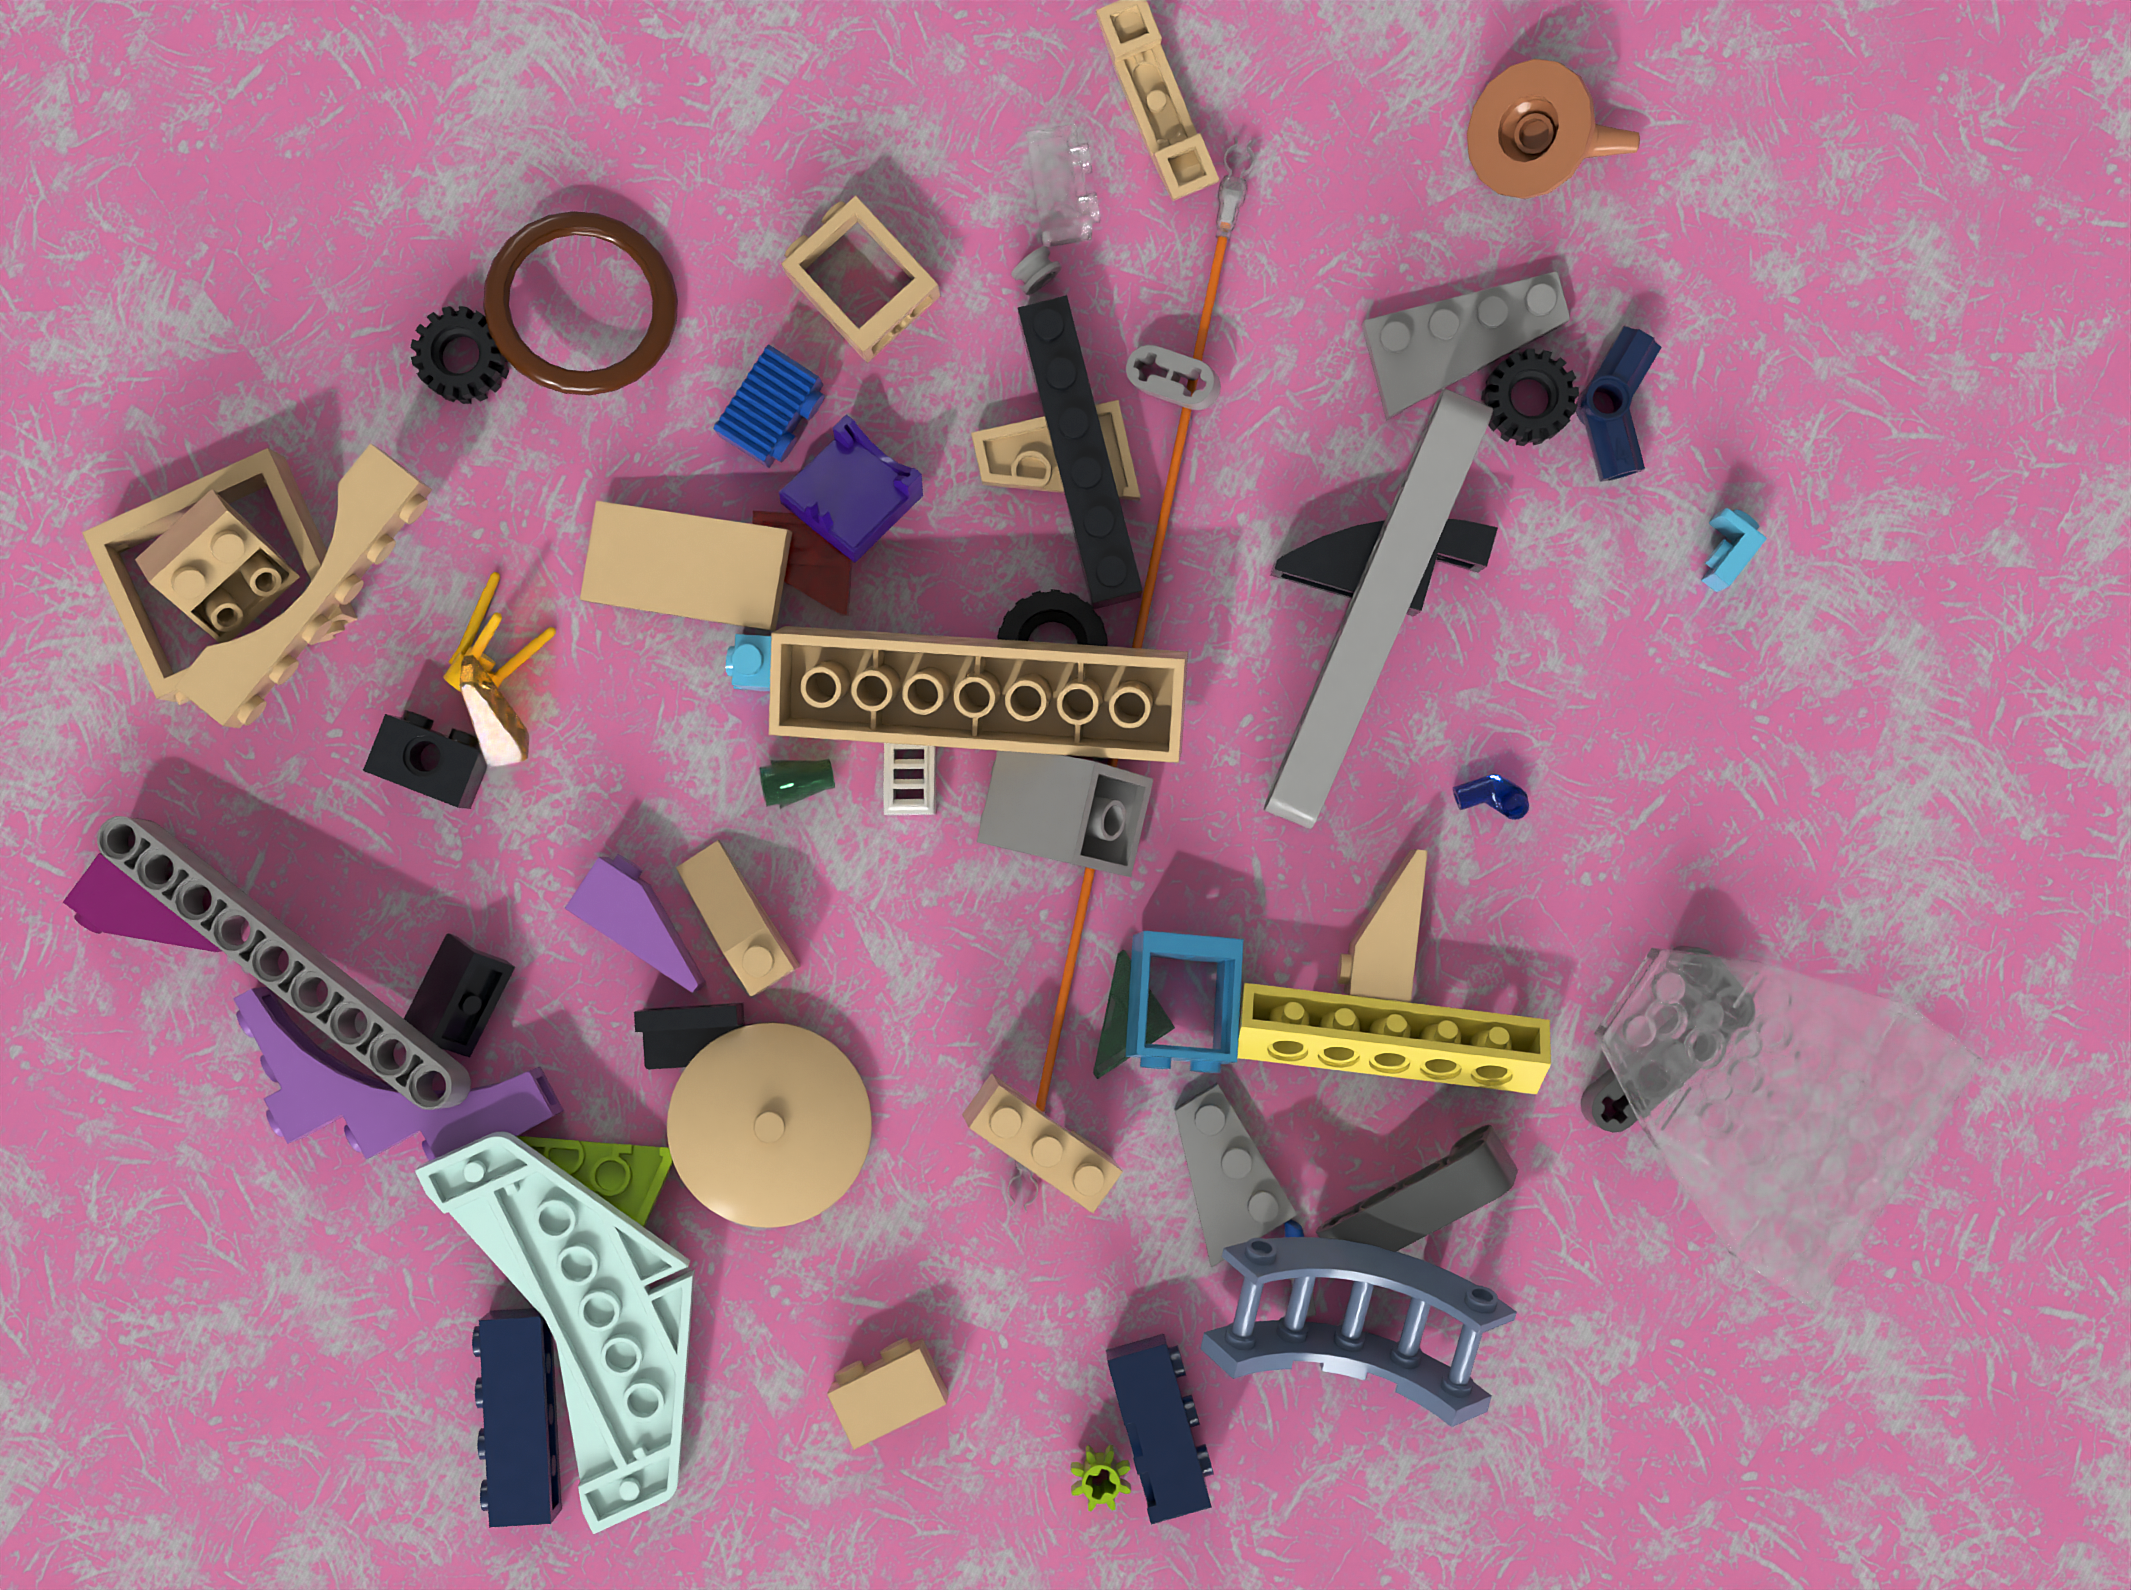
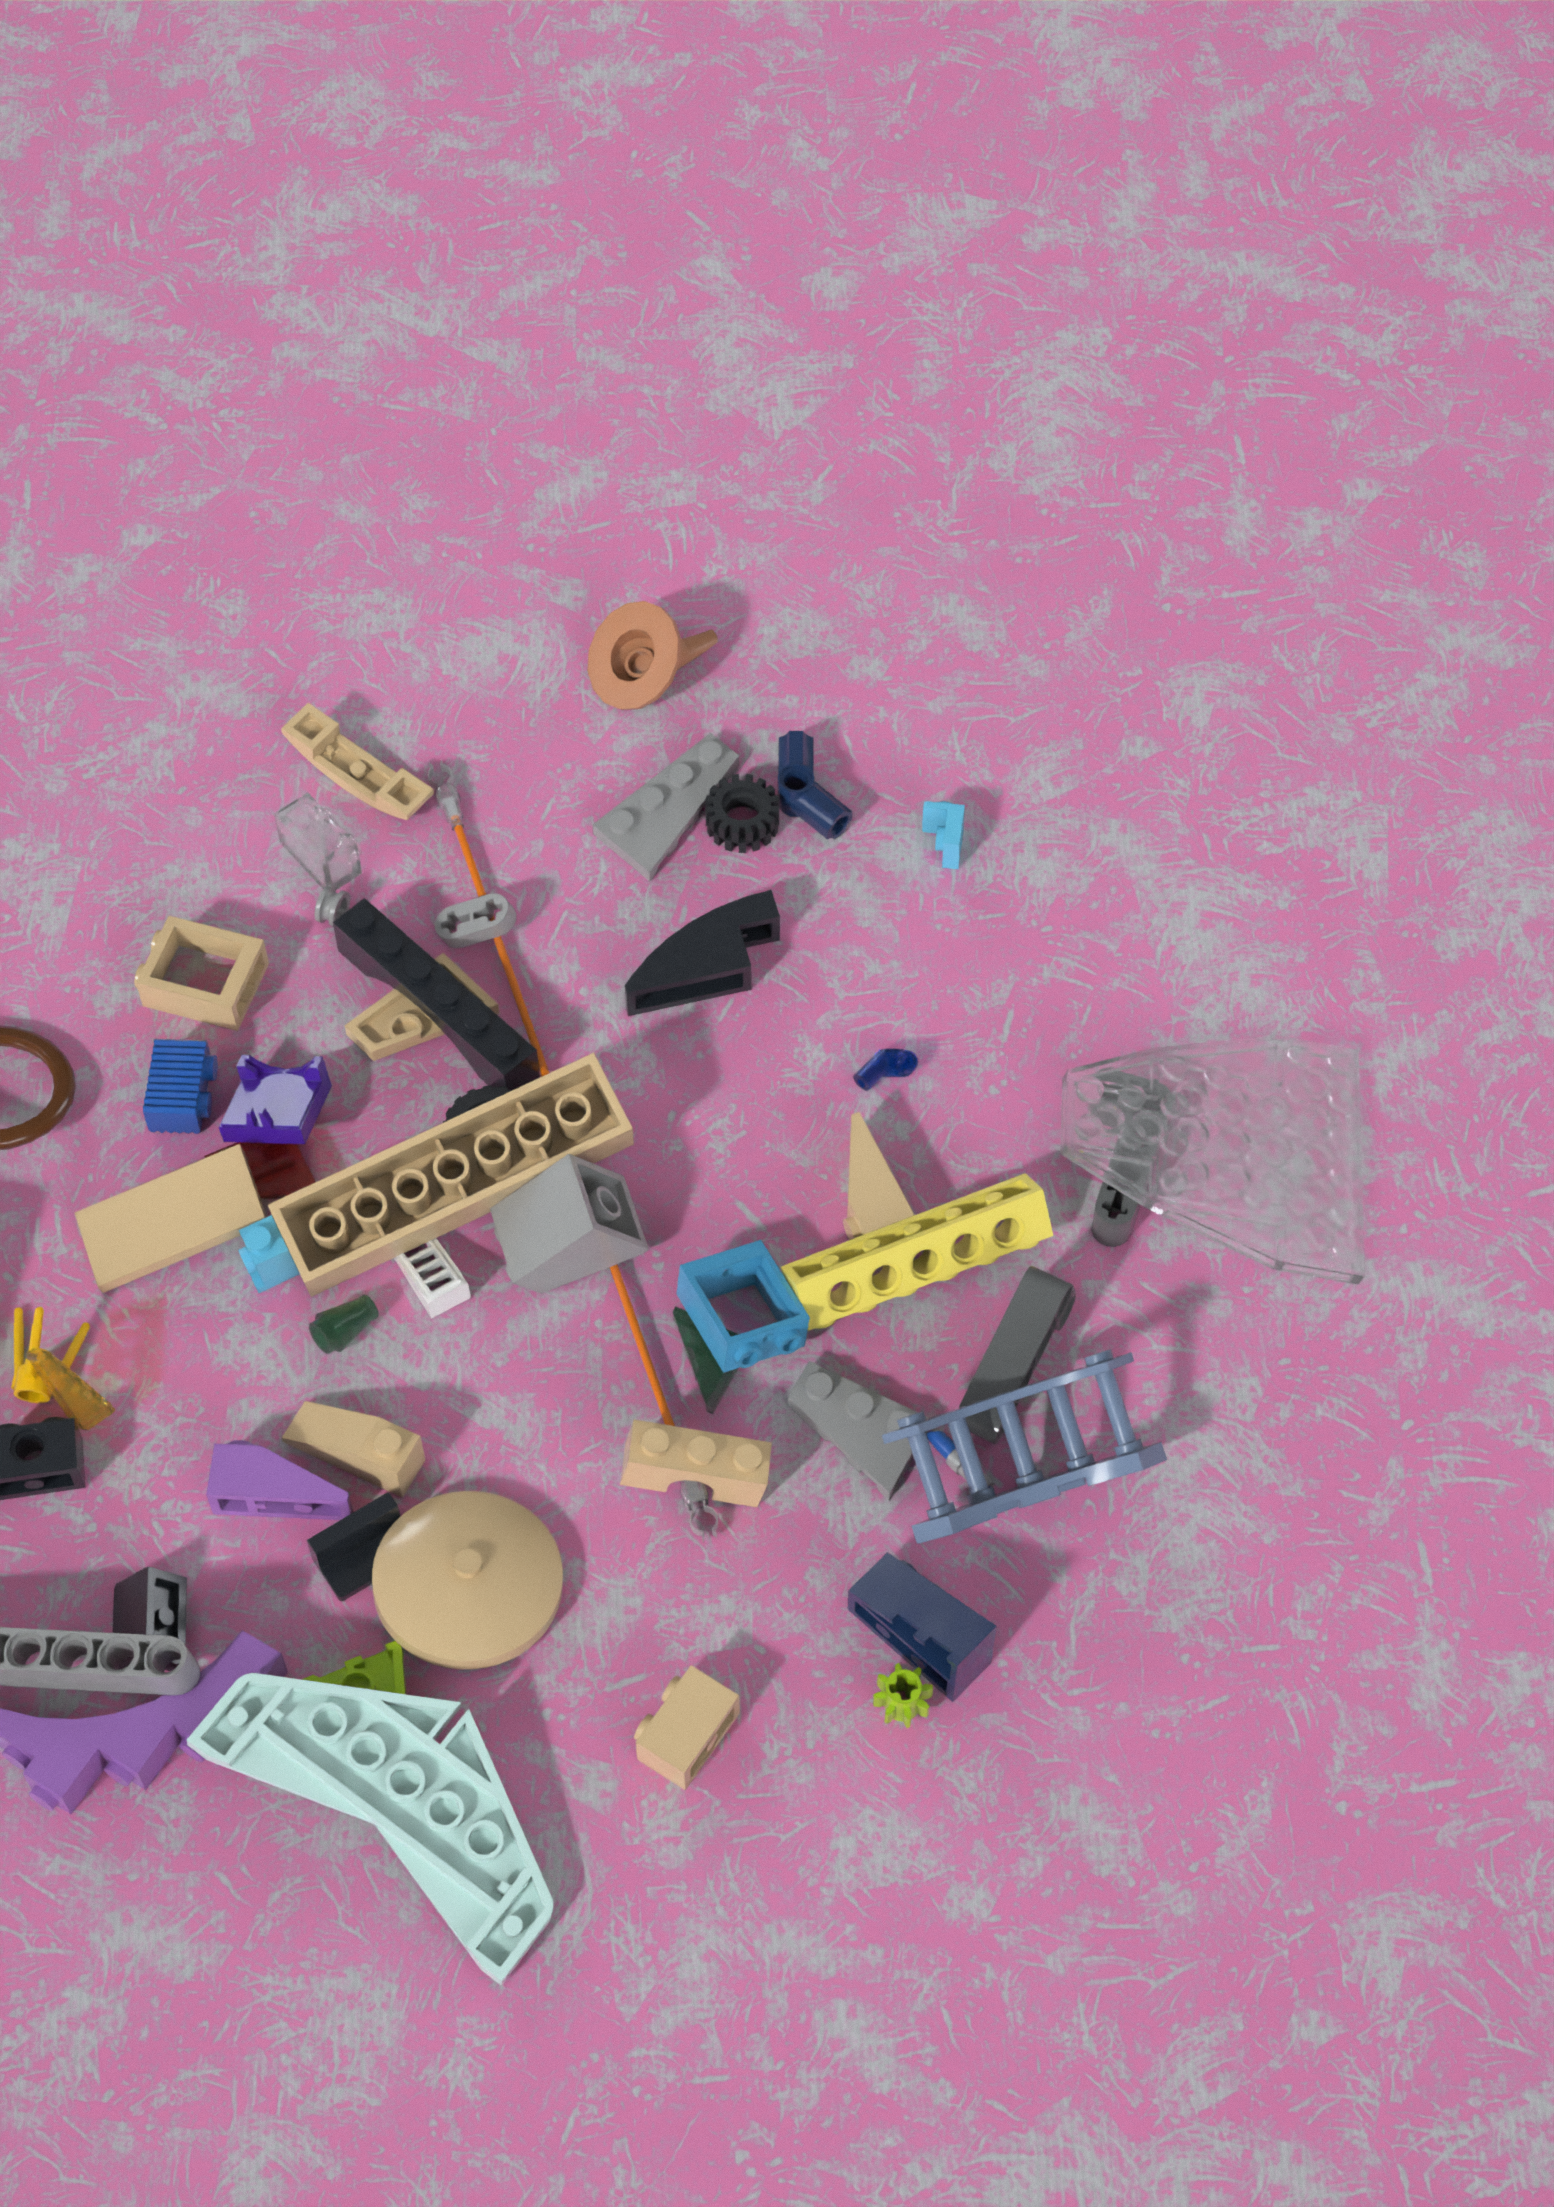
camera: 30 degrees left, 30 degrees down
(518, 1418) = (383, 1922): dark blue brick -> none
(1378, 607) = (718, 980): light grey beam -> none

